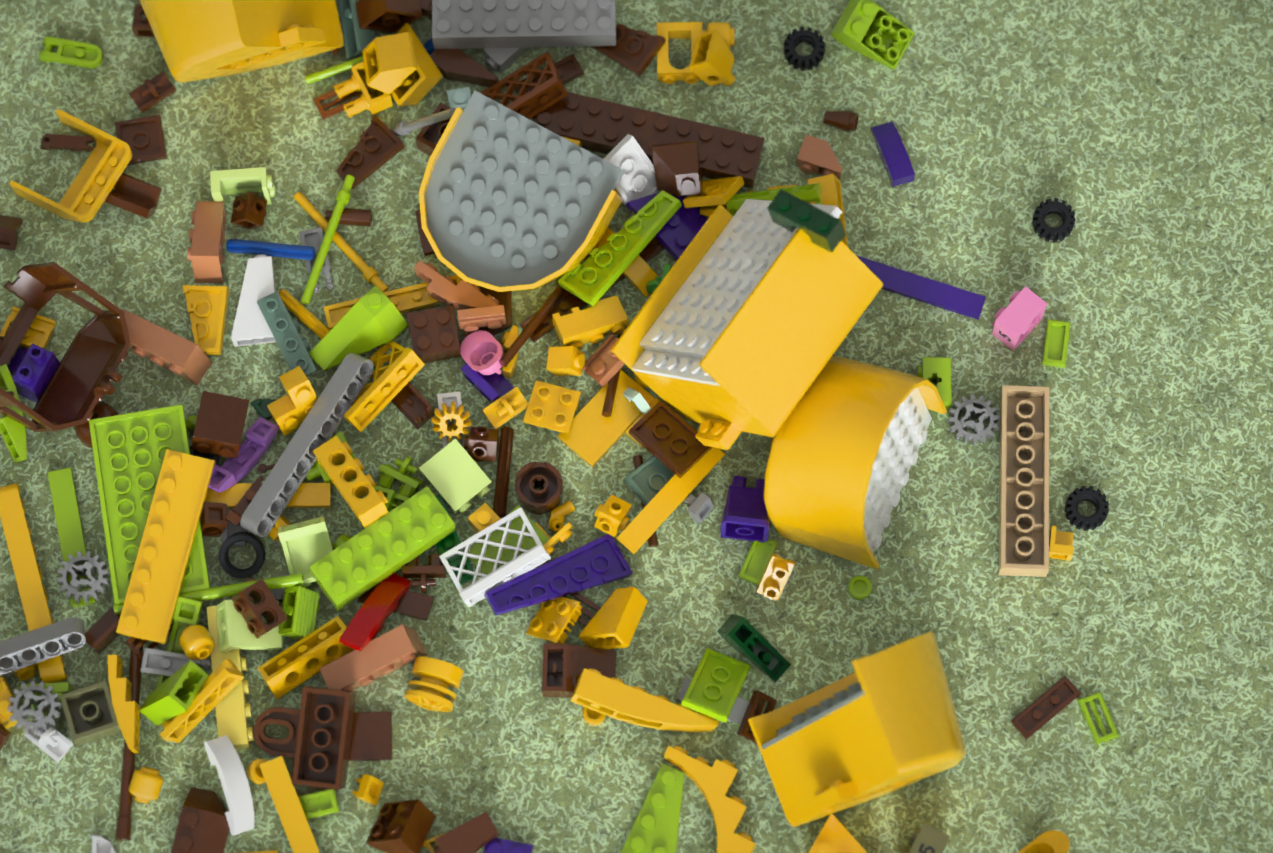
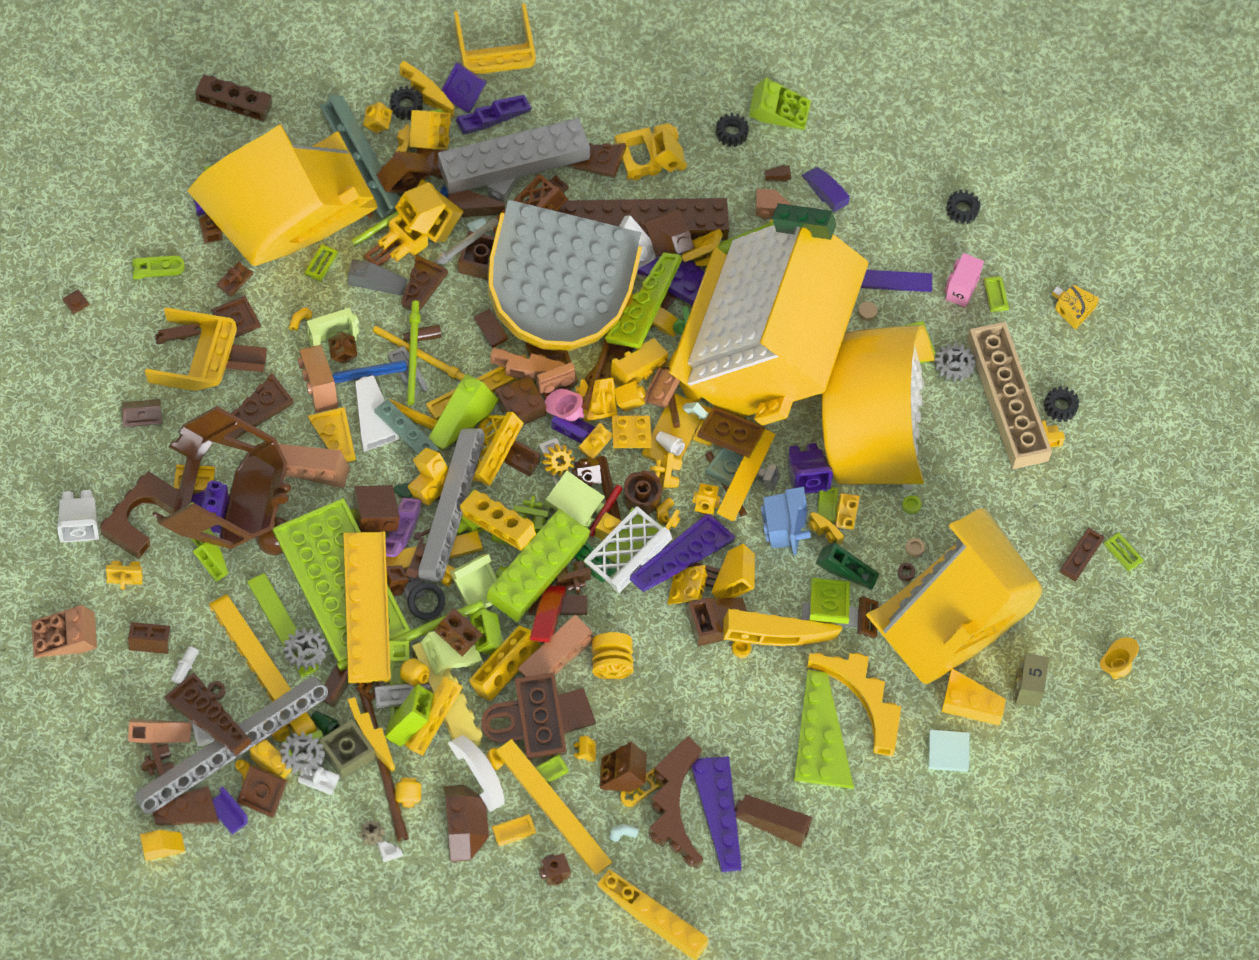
camera: 25 degrees left, 10 degrees down
(80, 673) = (324, 722): none -> dark green cone
(92, 826) = (371, 833): none -> dark tan gear
(136, 257) = (262, 405): none -> reddish brown wing
(212, 157) = (298, 316): none -> yellow arm
(248, 109) = (315, 275): none -> lime tile
(316, 132) = (374, 277): none -> dark grey slope
(490, 495) = (606, 508): none -> red bar
(529, 359) = (603, 400): none -> yellow wing
(582, 459) = (664, 468): none -> yellow hips
(593, 434) = (671, 443): none -> white cone
(696, 569) = (784, 518): none -> medium blue piece
(740, 586) = (822, 525): none -> yellow slope
(829, 675) = (905, 578): none -> reddish brown bush
(845, 643) = (915, 547): none -> tan tile
(890, 324) = (867, 311): none -> tan tile
(1147, 383) = (1074, 304): none -> torso

